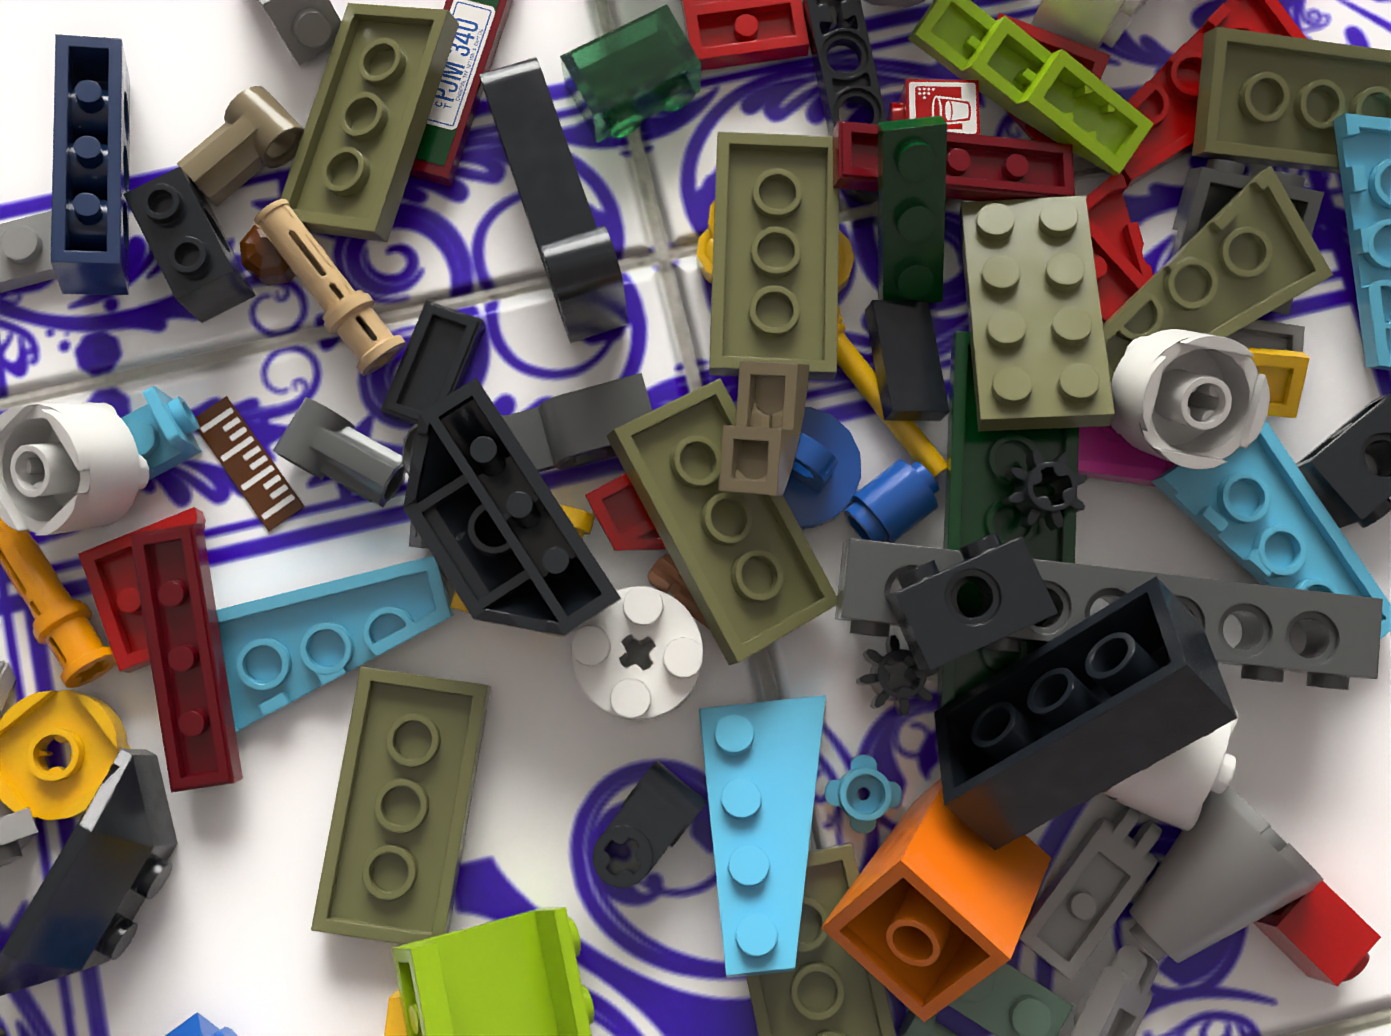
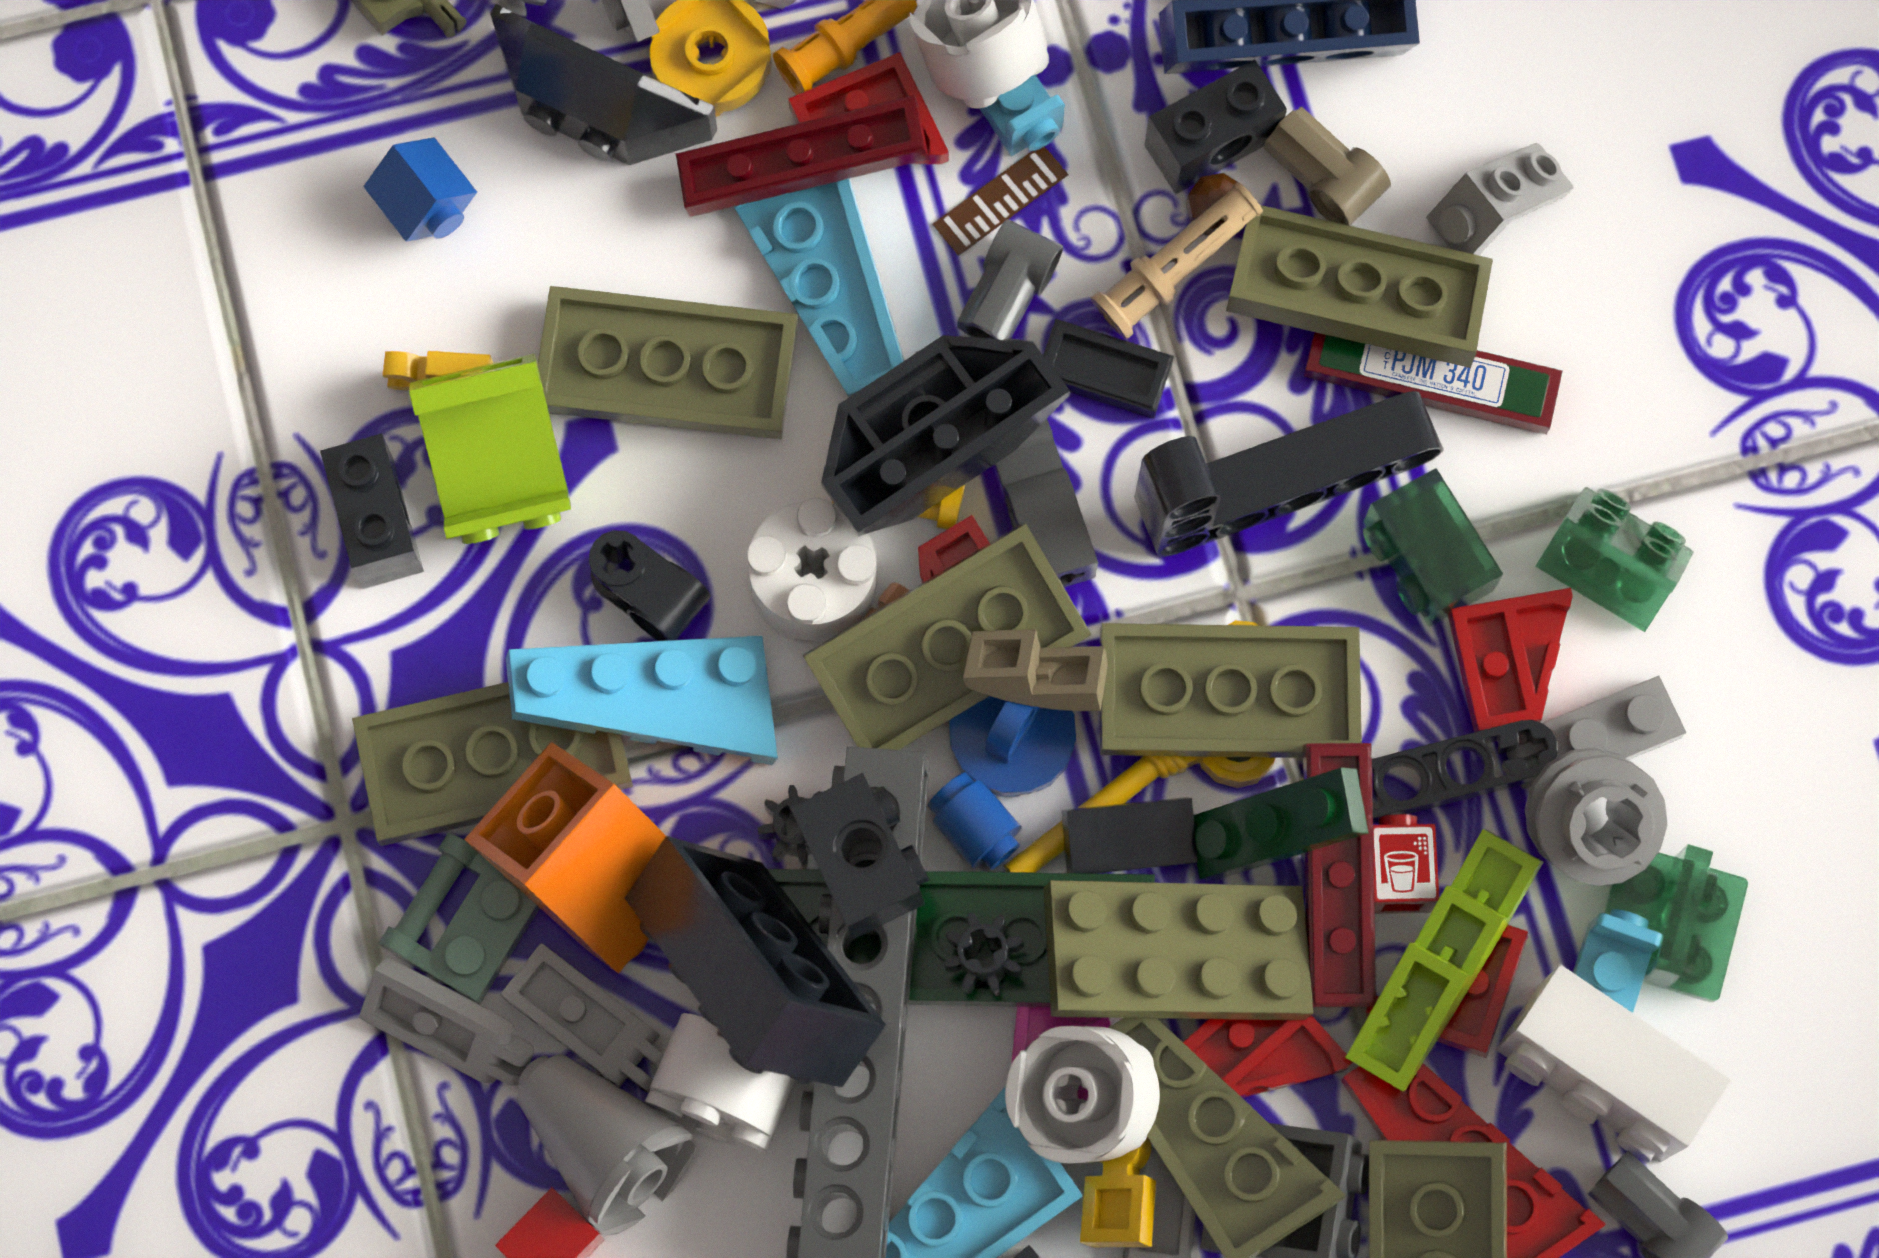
camera: 90 degrees right, 5 degrees down
(881, 793) = (680, 780): medium azure plate -> none

